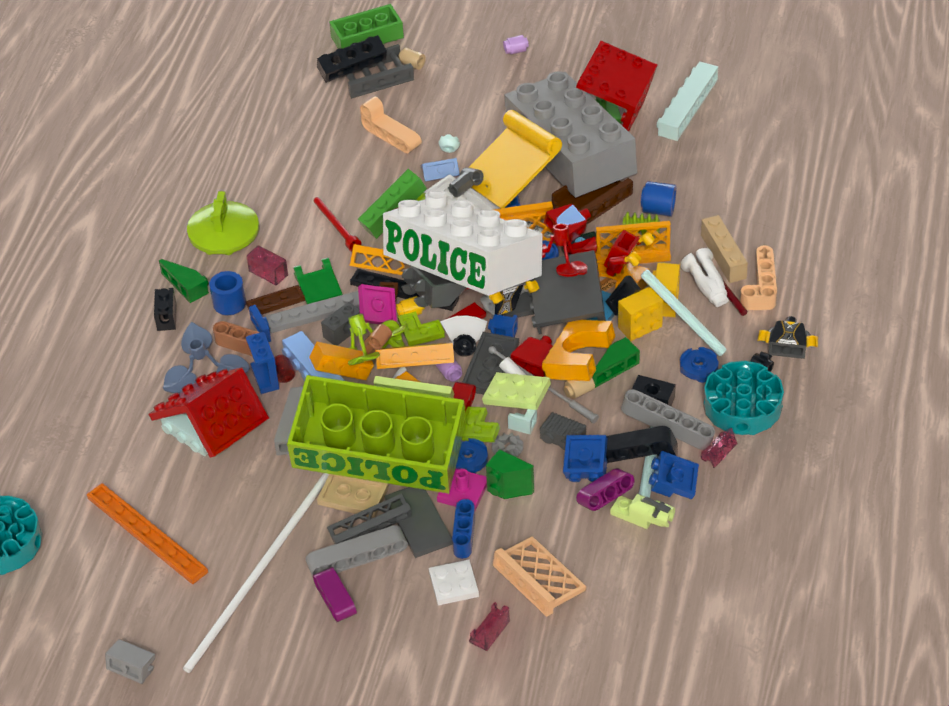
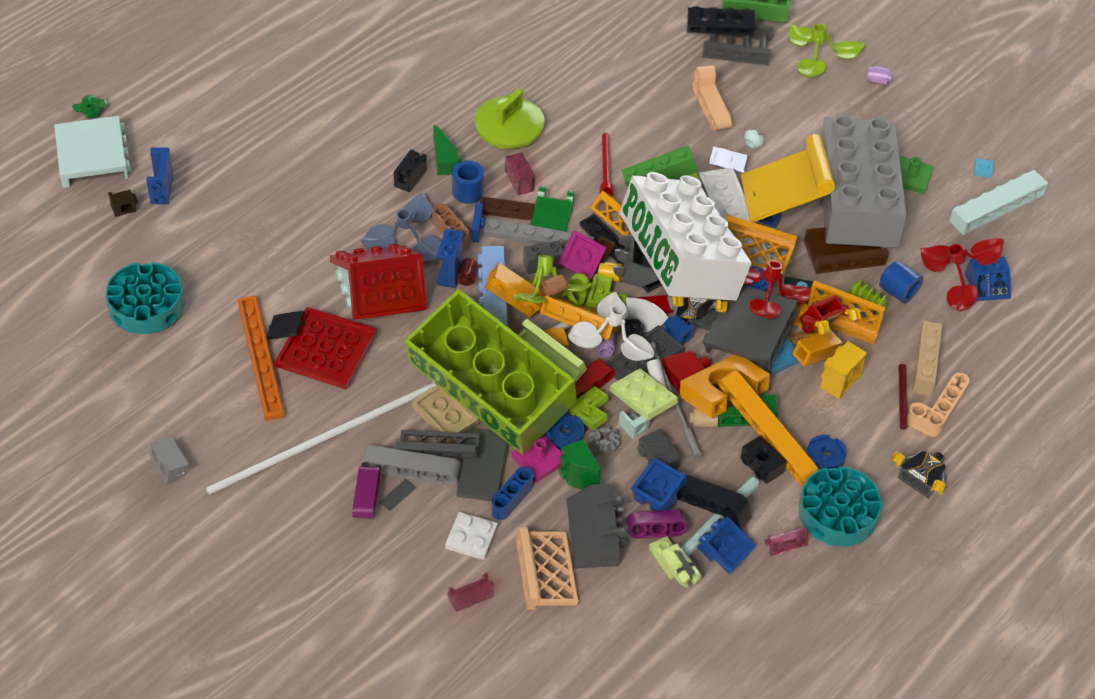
camera: 25 degrees right, 5 degrees up
(150, 493) = (285, 325): none -> black piece
(202, 494) = (326, 348): none -> red plate
(361, 583) = (397, 495): none -> dark grey sticker
(410, 56) = (778, 45): tan brick -> none
(426, 43) = (812, 68): none -> lime plant
(436, 367) = (586, 336): none -> white plant
(467, 178) = (738, 180): dark grey piece -> none
(556, 518) = (594, 527): none -> dark grey piece
(570, 216) = (798, 263): red torso -> none
(618, 79) = (935, 154): red bracket -> none
(624, 289) = (797, 355): black plate -> none
(640, 313) = (803, 380): yellow brick -> none
(640, 363) = (767, 425): none -> light orange beam
(658, 81) = (983, 168): none -> medium azure plate
(660, 414) = (756, 499): light grey beam -> none
(673, 165) = (938, 256): none -> red plant
(683, 312) = (840, 399): light aqua axle -> none
(711, 285) = (892, 386): white piece -> none
(725, 163) = (990, 280): none -> blue slope
(764, 359) = (883, 482): black gear -> none

